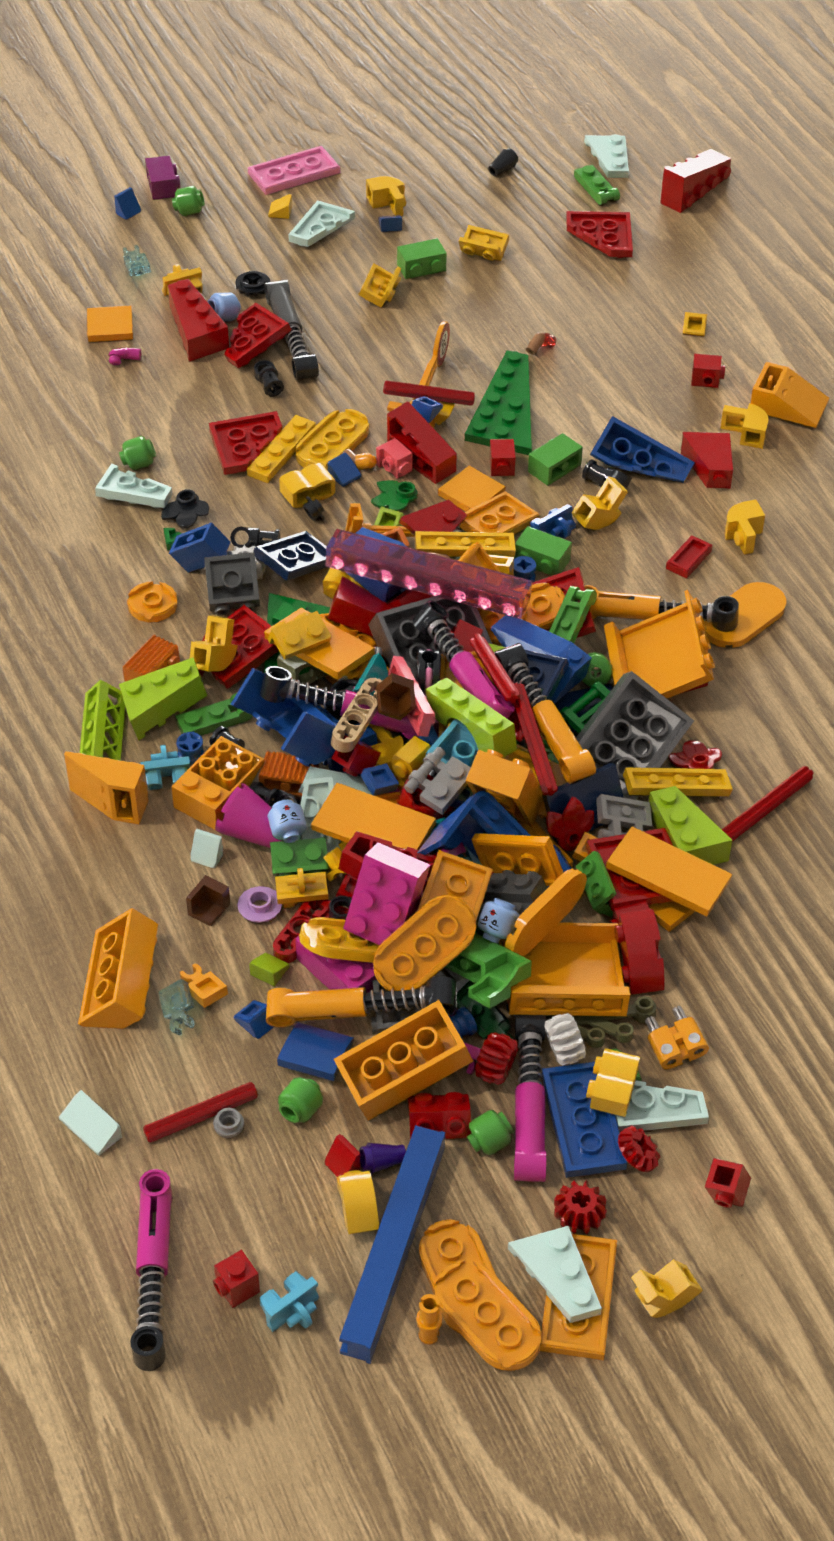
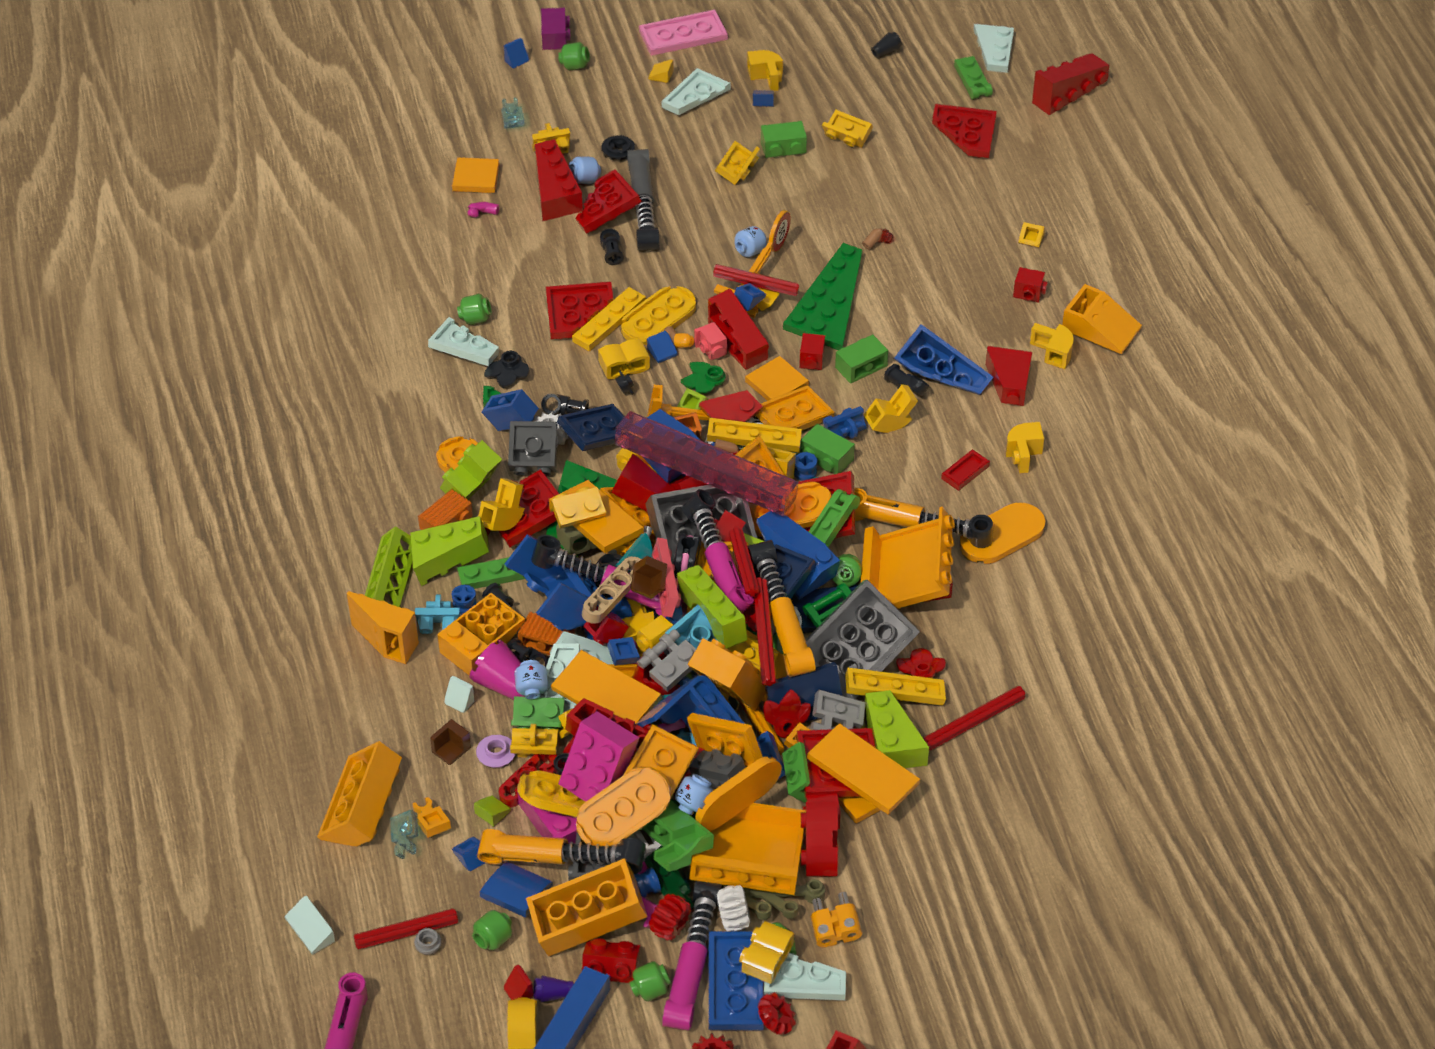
camera: 10 degrees right, 0 degrees up
(172, 612) = (473, 470): none -> lime brick
(412, 358) = (750, 241): none -> light blue head

